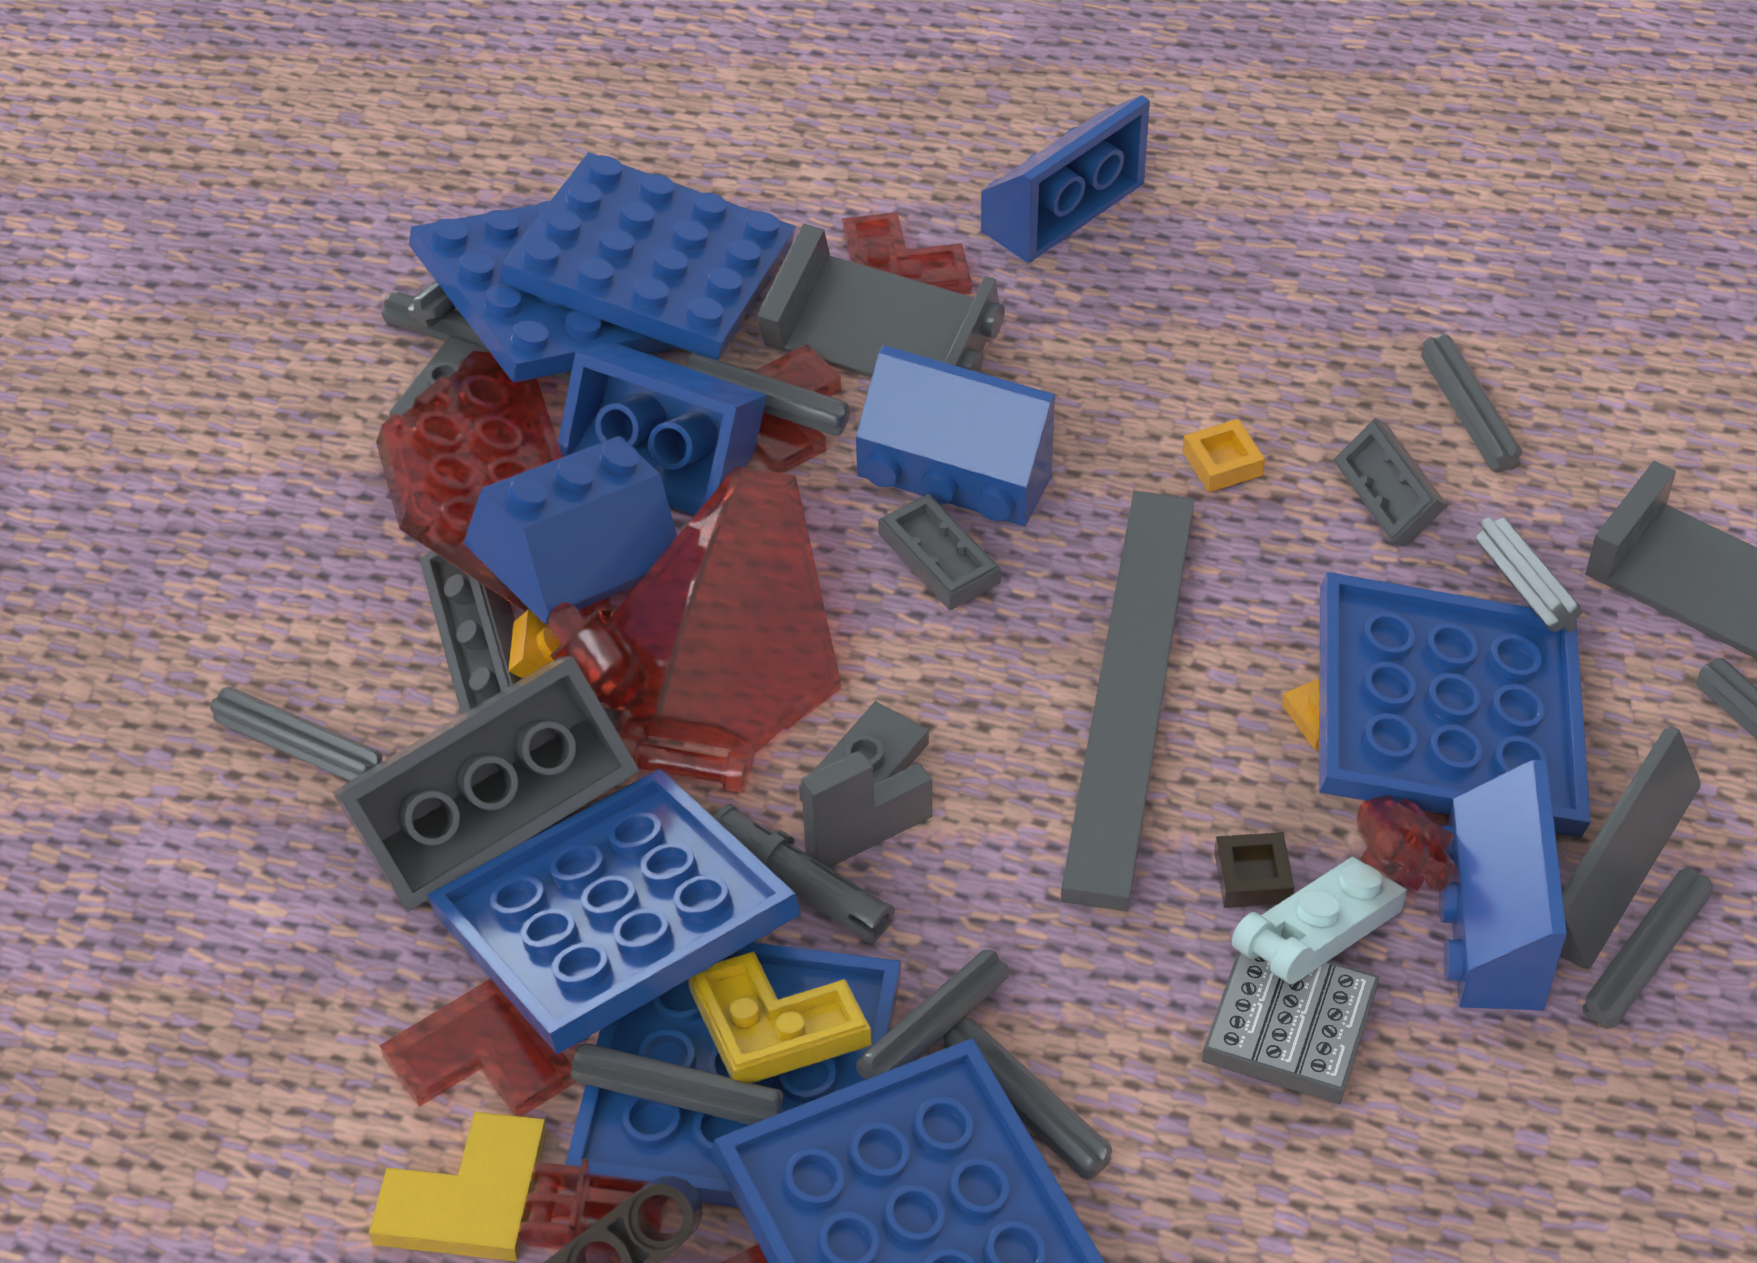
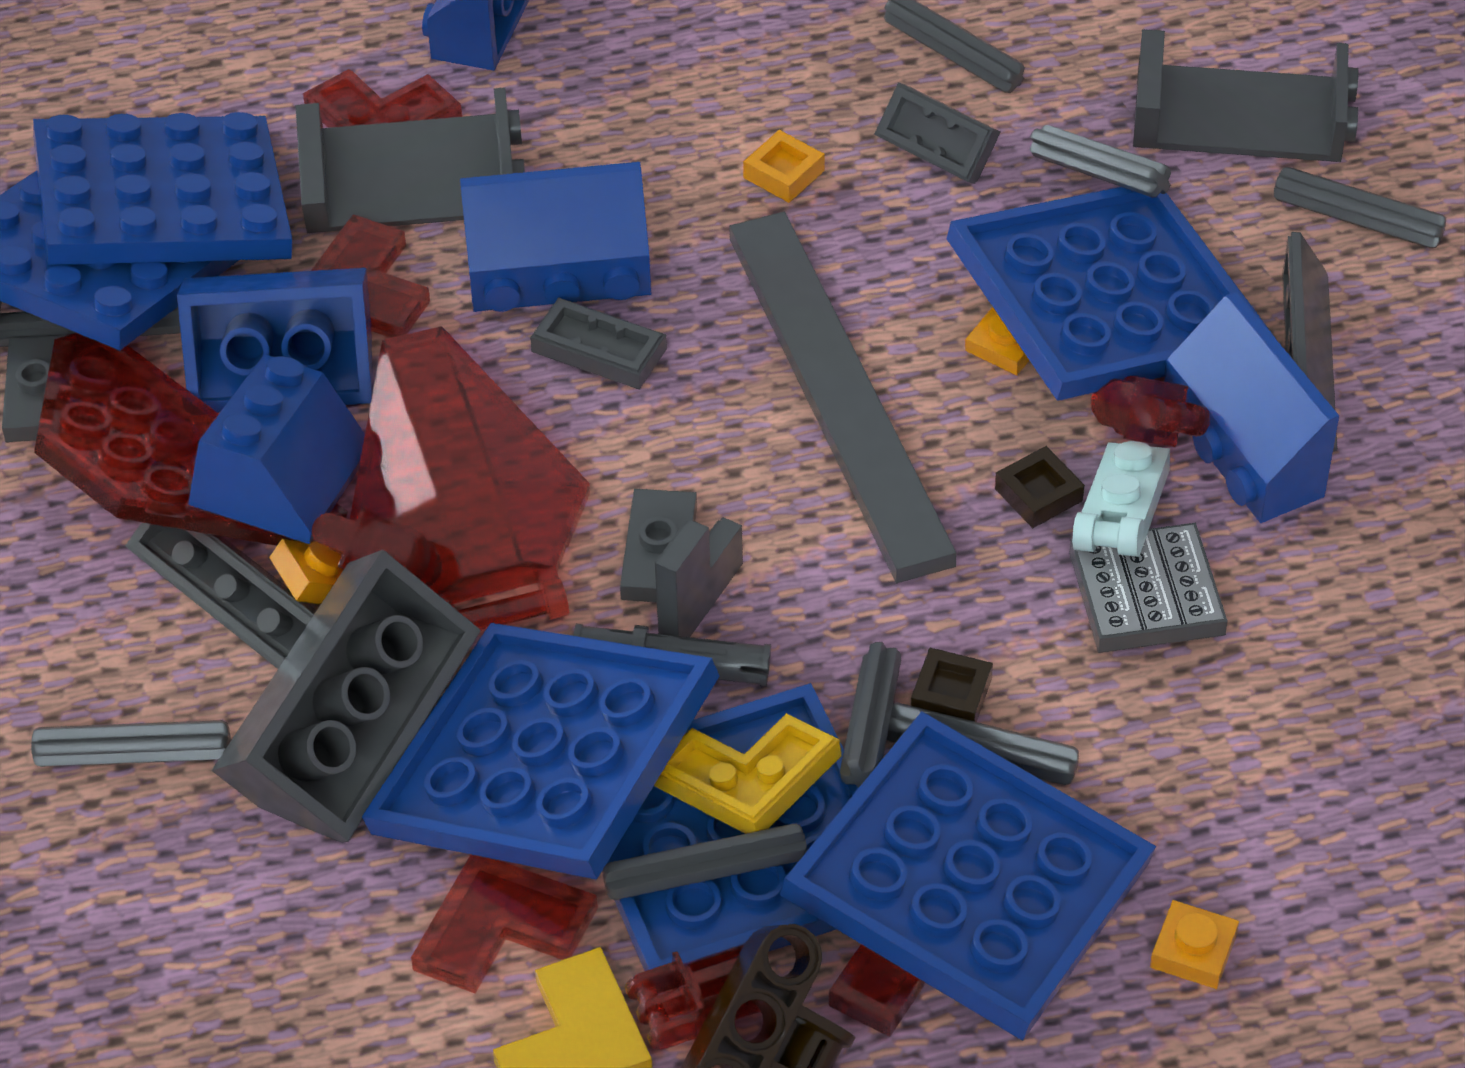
camera: 30 degrees left, 0 degrees up
(783, 398) = (383, 267): dark grey axle -> none
(1034, 1027) = (952, 684): none -> dark brown plate
(1647, 948) = (1372, 414): dark grey axle -> none

